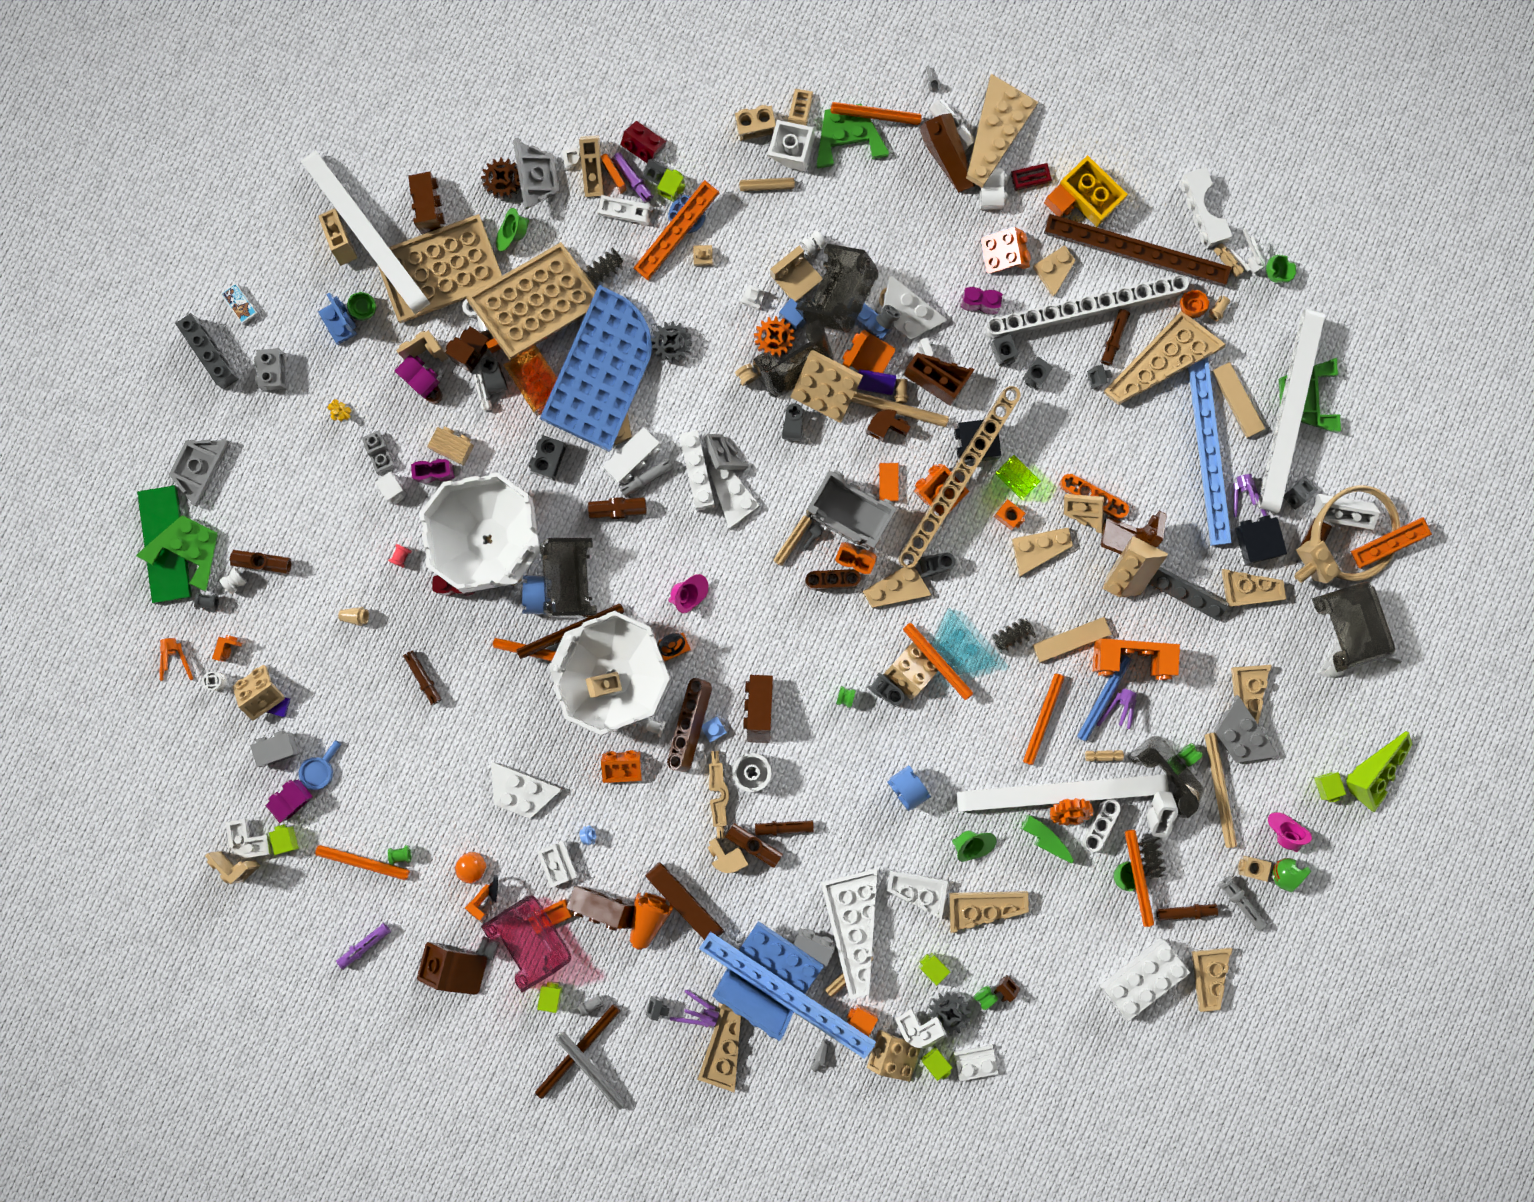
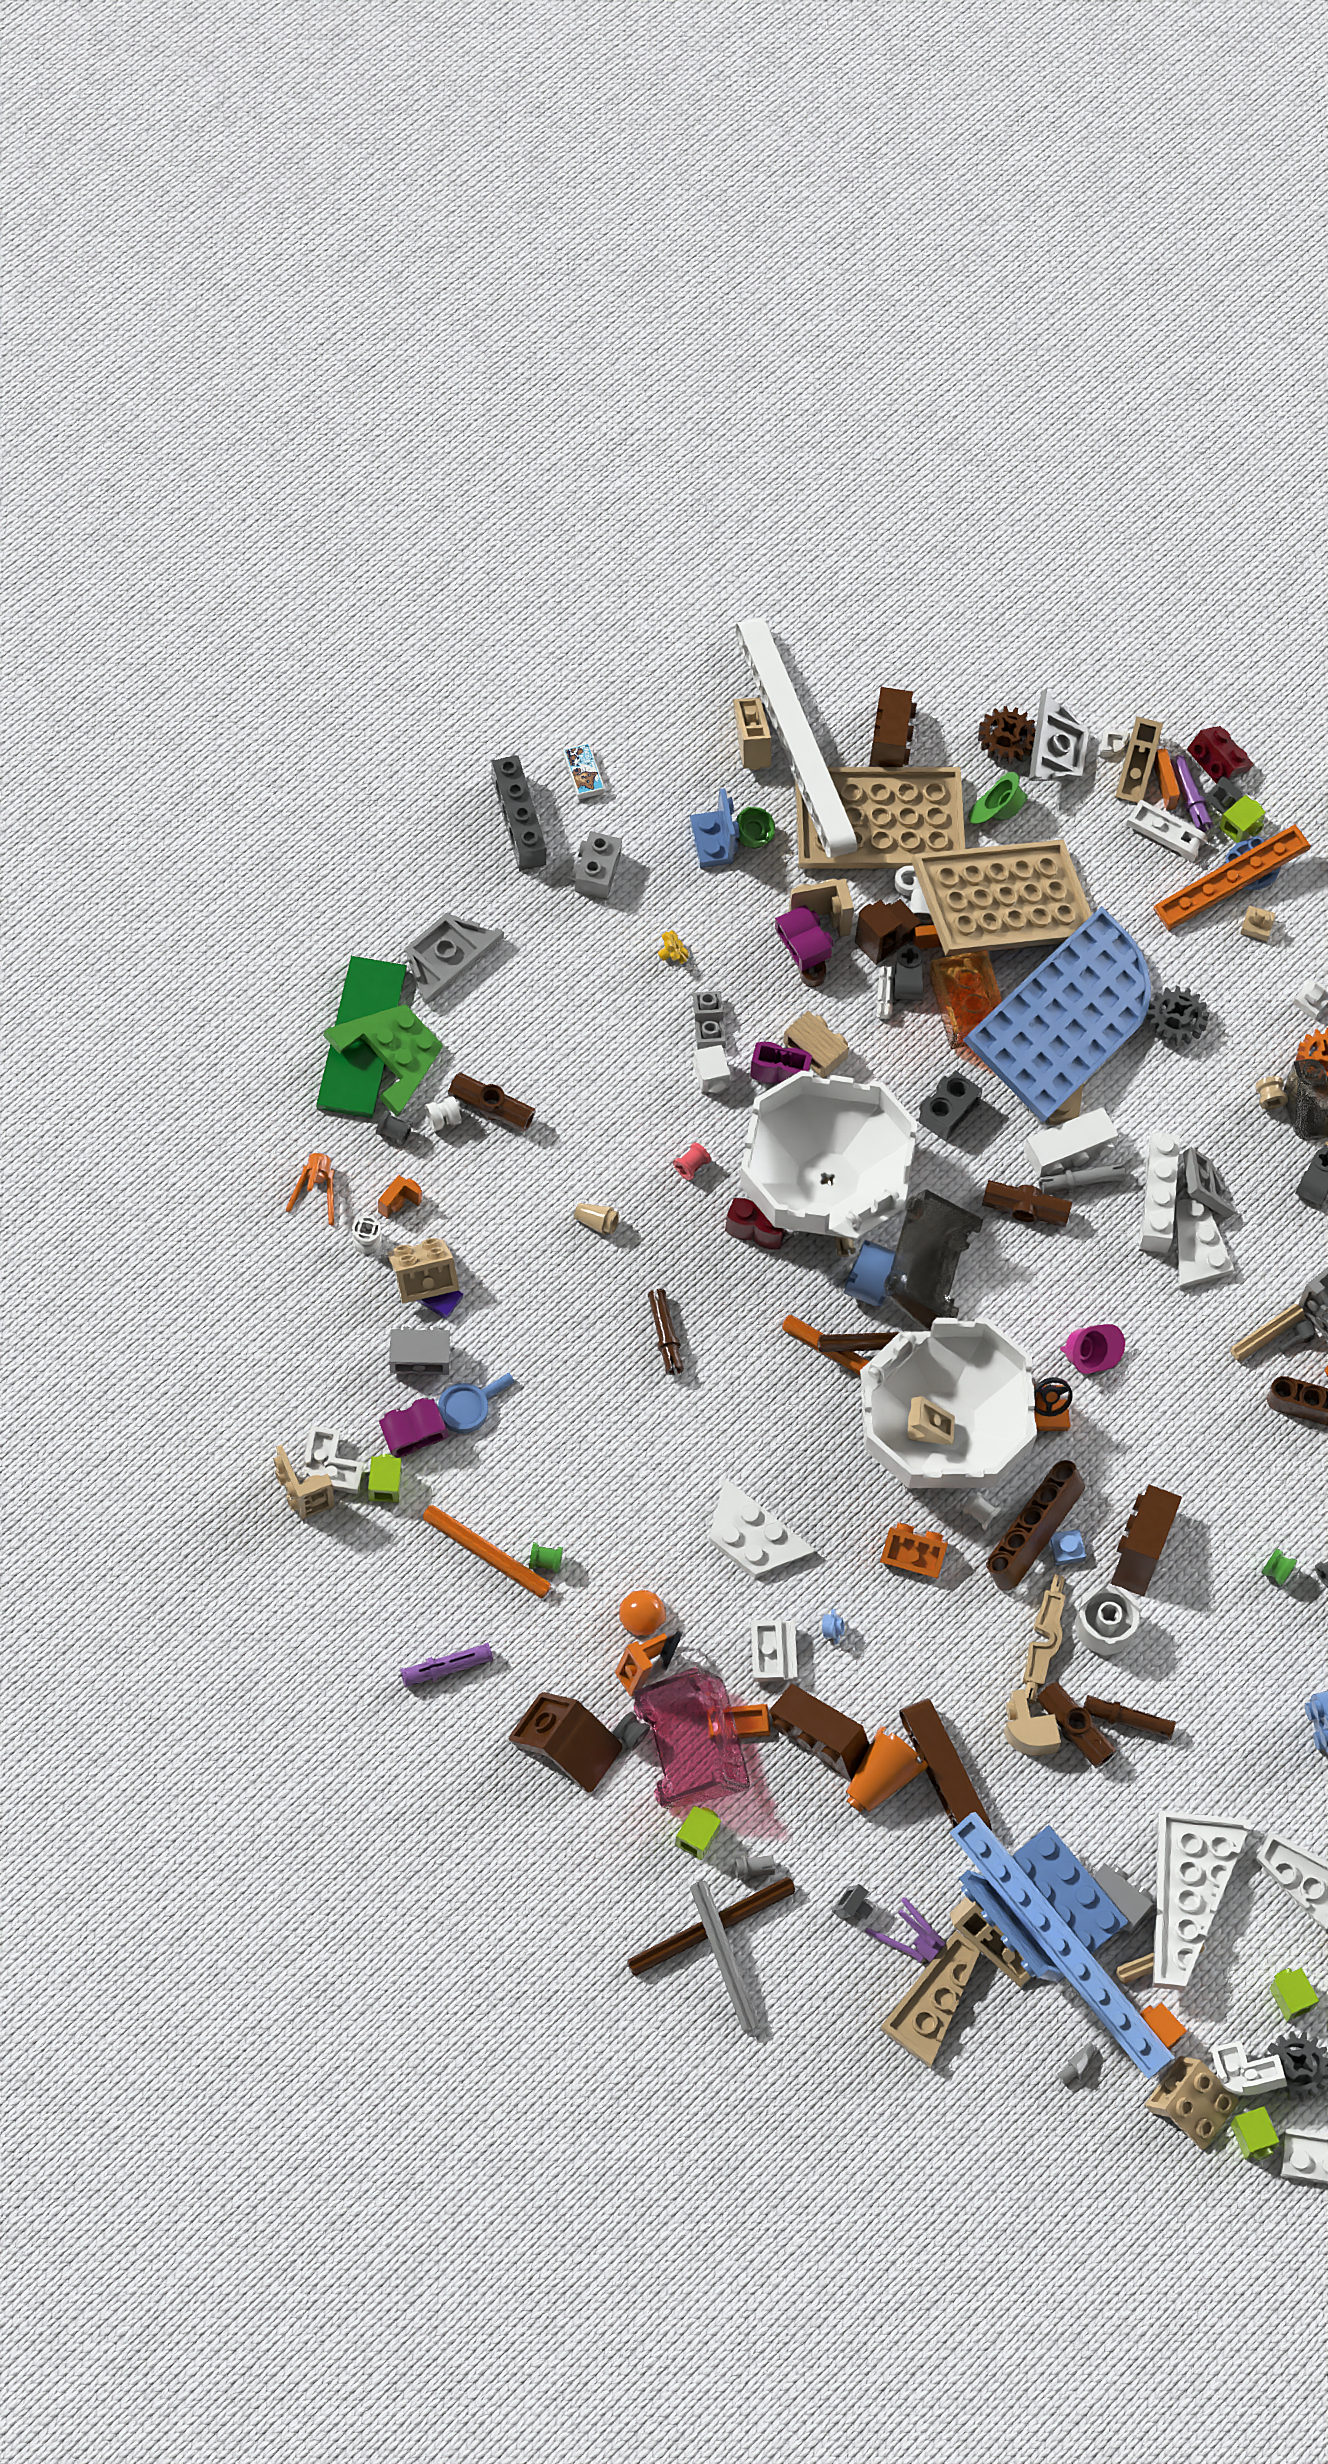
camera: 10 degrees right, 20 degrees down
(604, 267) = (1114, 888): clear smoke piece -> none

